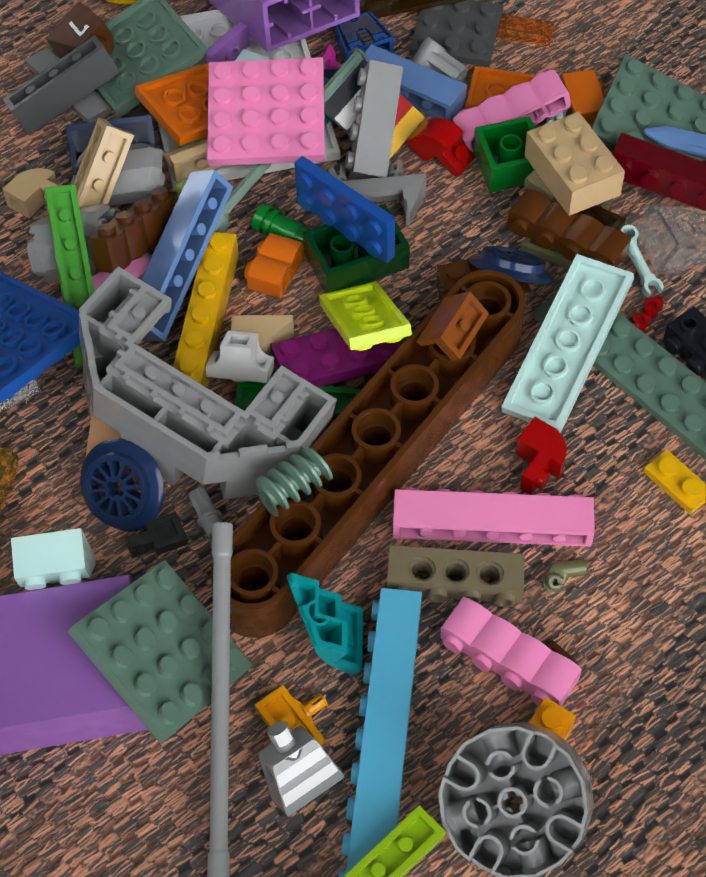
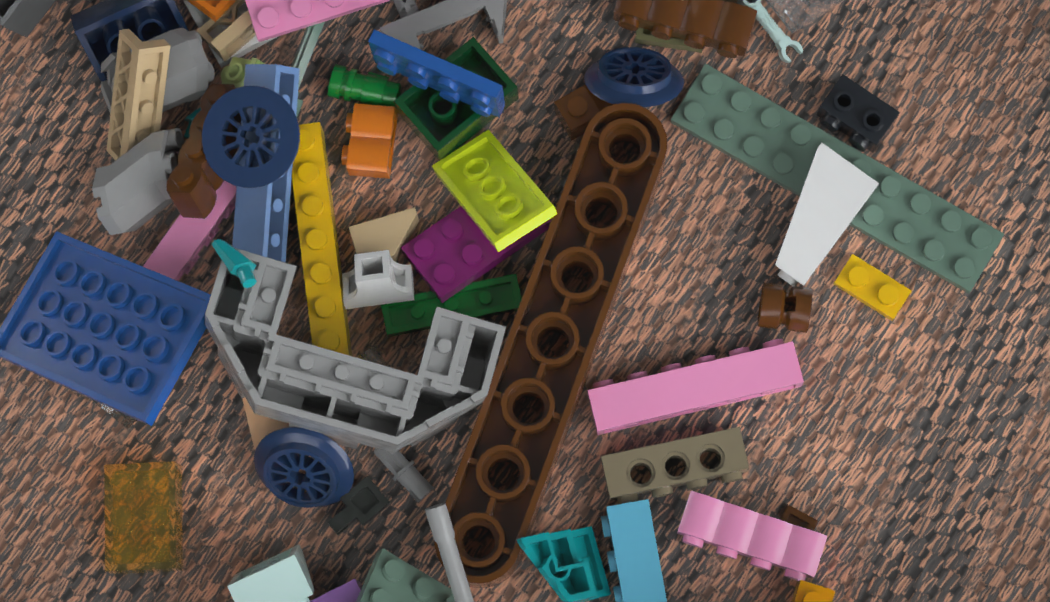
camera: 10 degrees left, 20 degrees up
(26, 190) = (64, 113): tan brick -> none
(69, 249) = (152, 213): bright green plate -> none
(120, 277) = (236, 262): none -> teal bar
(194, 202) = (215, 133): none -> dark blue piece
(290, 478) = (488, 432): sand green piece -> none
(454, 324) = (598, 191): dark orange panel -> none
(545, 451) = (727, 291): red brick -> none
(560, 572) = (777, 426): olive arm -> none
(568, 342) = (720, 156): light aqua plate -> none
(593, 473) = (772, 305): none -> reddish brown wheel
(649, 404) = (824, 210): none -> white slope
(651, 308) = (794, 79): red piece -> none

